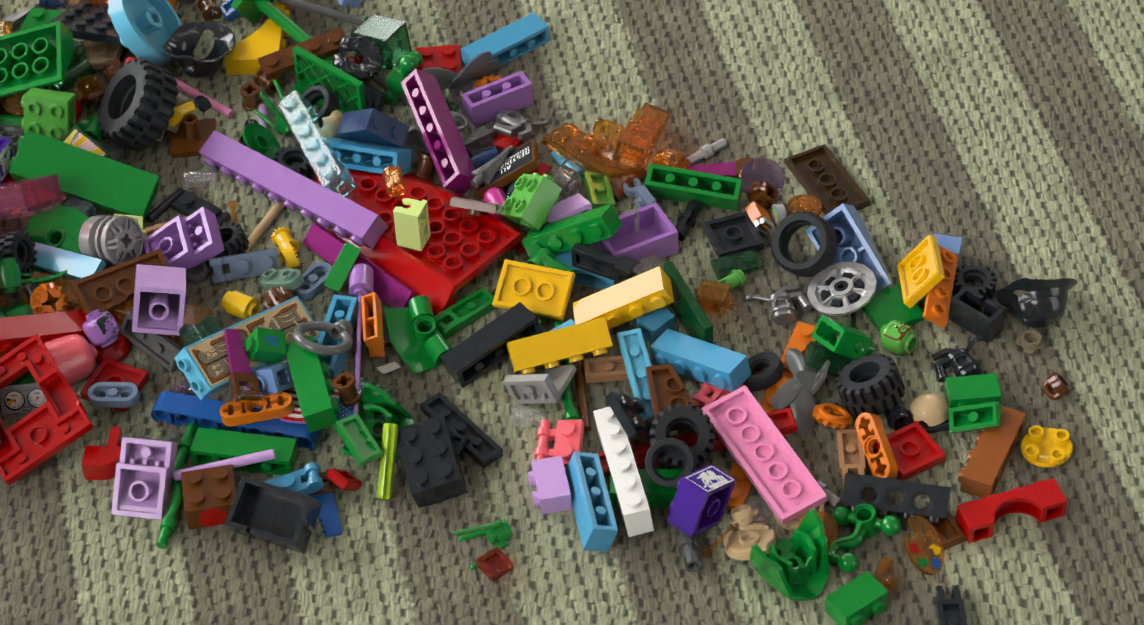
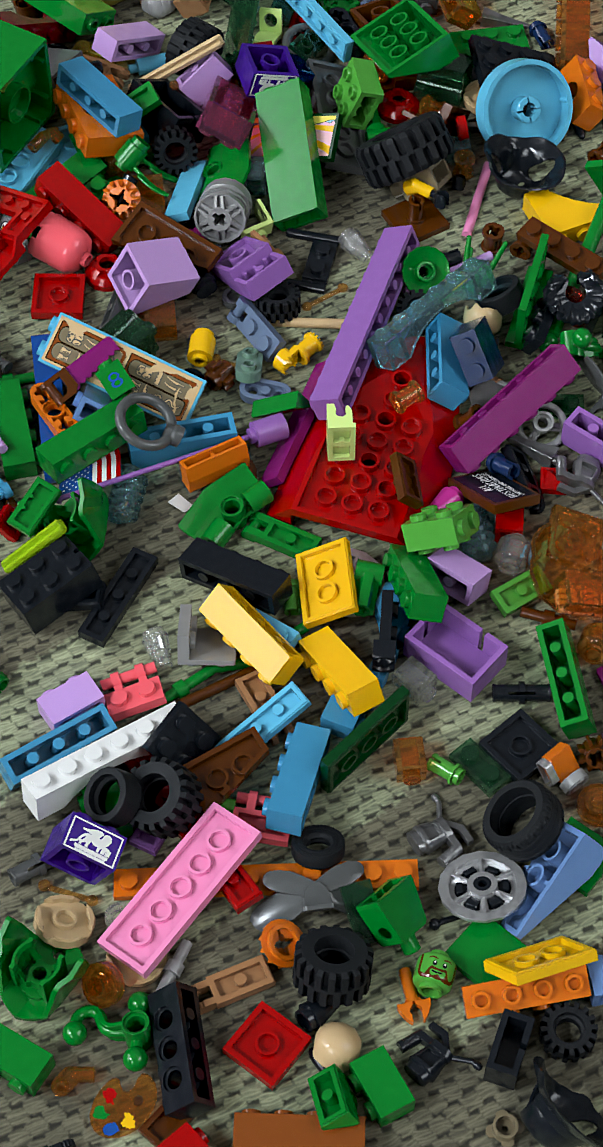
camera: 65 degrees right, 10 degrees up
(101, 328) = (100, 250): medium lavender head -> none
(113, 394) = (32, 297): sand blue plate -> none
(346, 386) = (95, 469): reddish brown bush -> none
(485, 173) = (477, 474): flat silver piece -> none
(640, 192) = (526, 638): sand blue plate -> none
(742, 515) = (96, 900): tan plate -> none
(867, 440) = (248, 1005): orange beam -> none
(911, 361) = (411, 998): none -> orange bar

